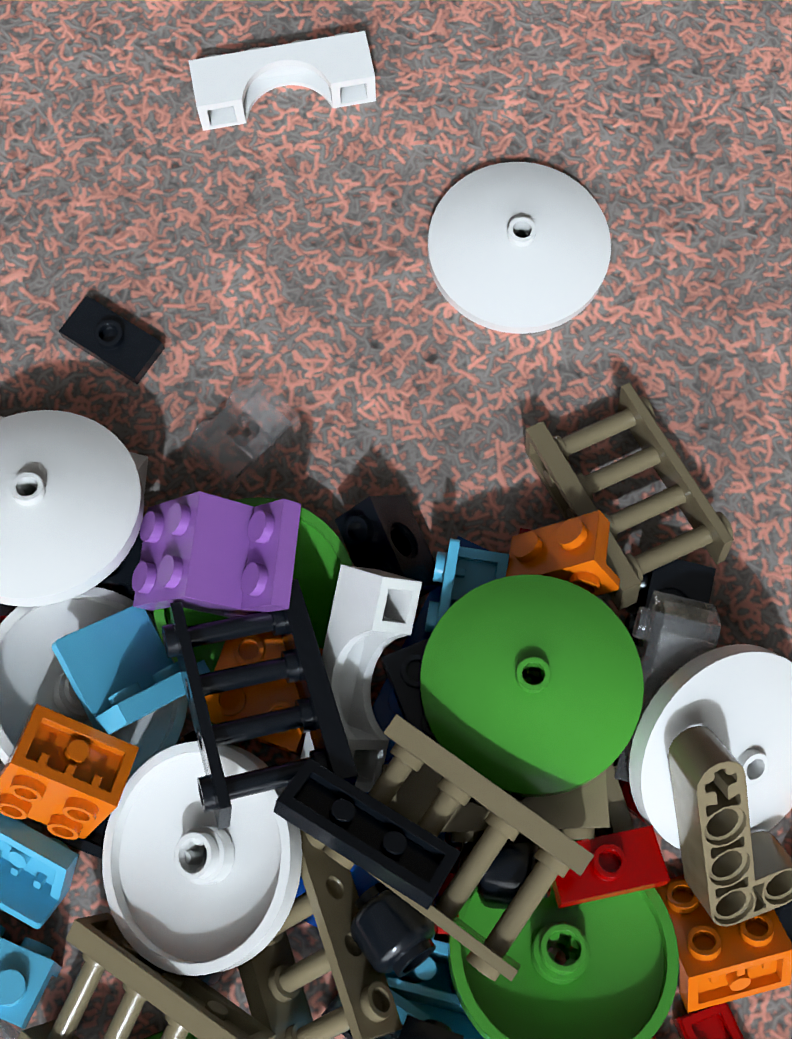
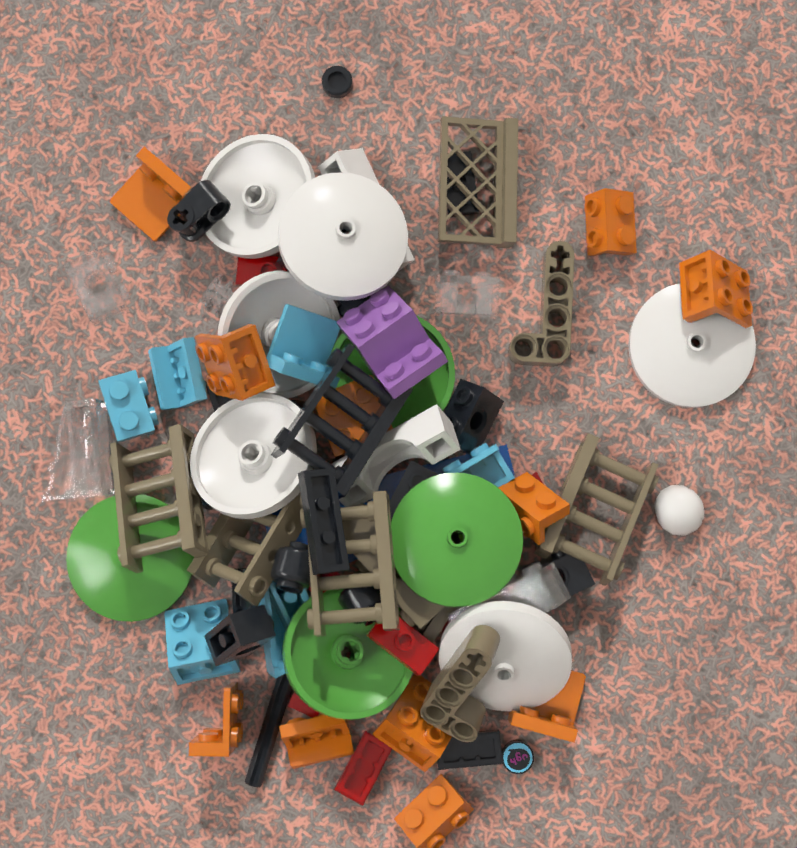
camera: 50 degrees right, 10 degrees up
(162, 294) = (505, 181): none -> dark tan fence
(232, 82) = (650, 116): white arch -> none
(305, 218) = (610, 222): none -> orange bracket
(339, 350) = (550, 304): none -> dark tan beam
(475, 168) = (715, 286): none -> orange bracket
(698, 408) = (679, 510): none -> white hair

